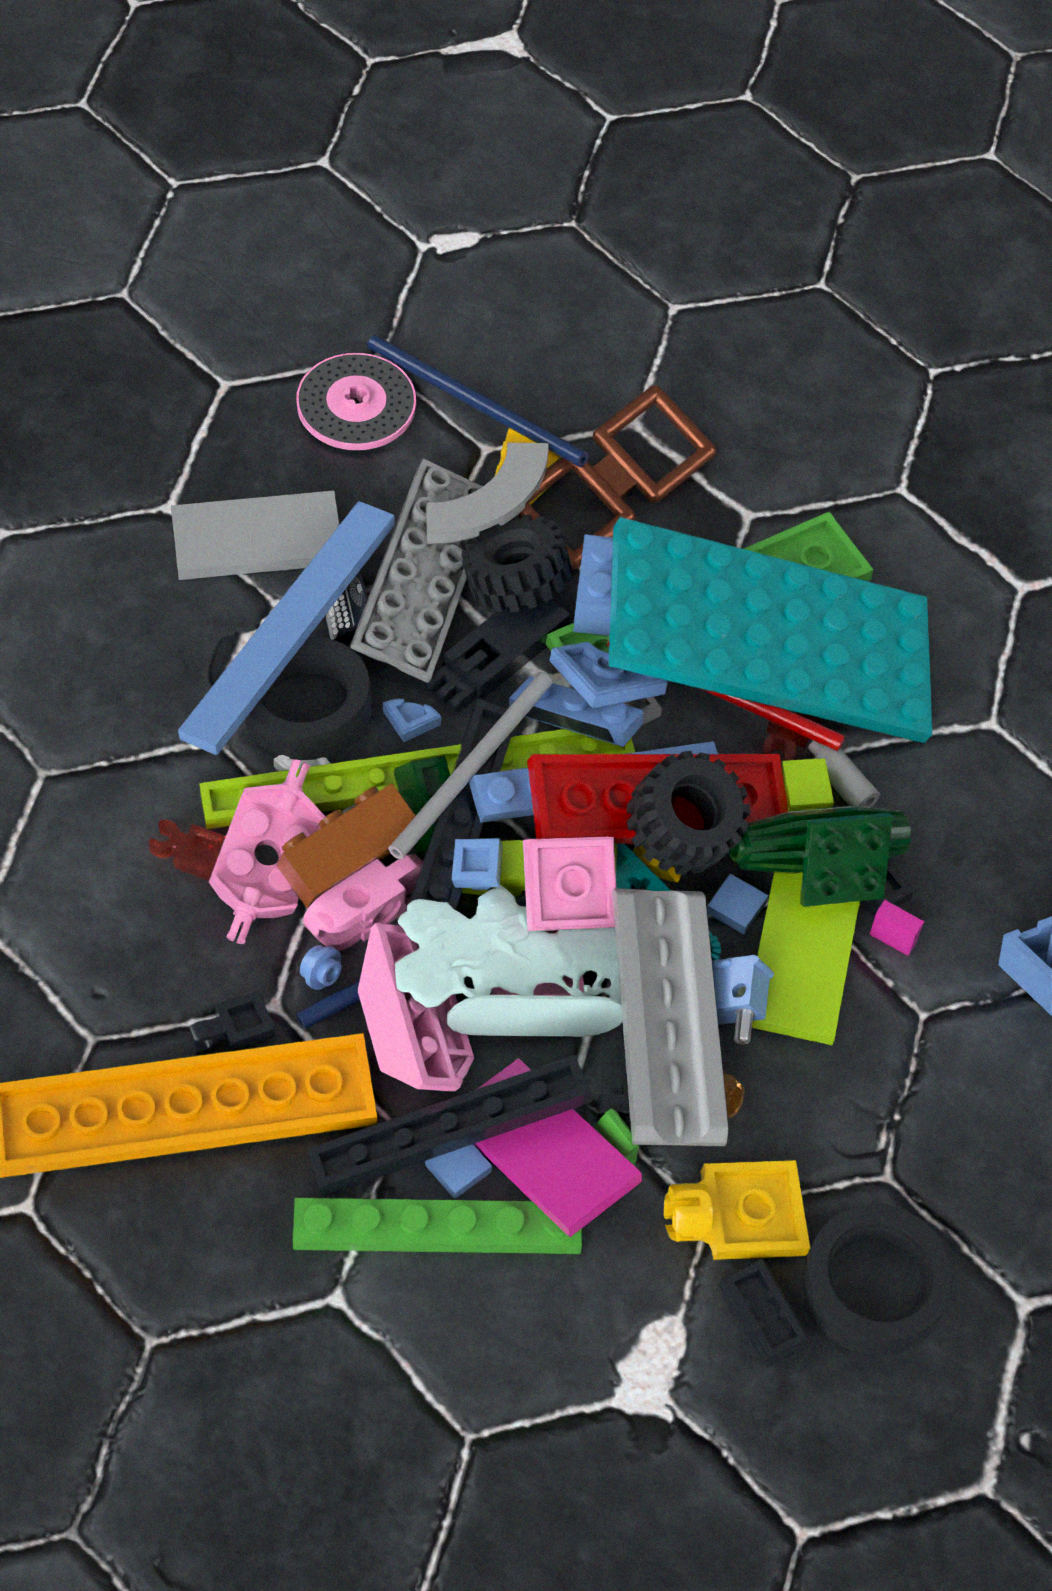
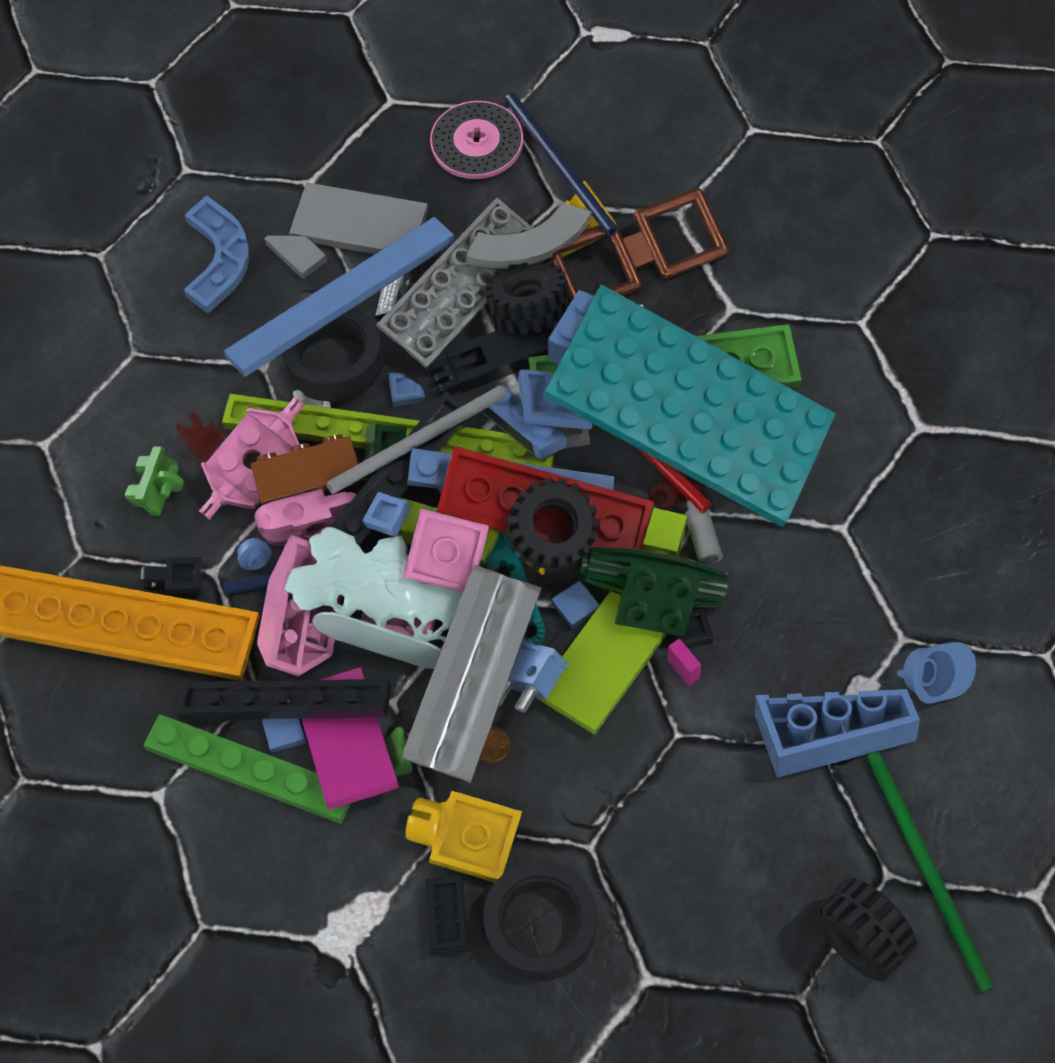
camera: 30 degrees right, 5 degrees up
(111, 609) = (230, 256): none -> medium blue plate
(160, 916) = (157, 481): none -> bright green hips
(197, 593) = (297, 253): none -> light grey tile

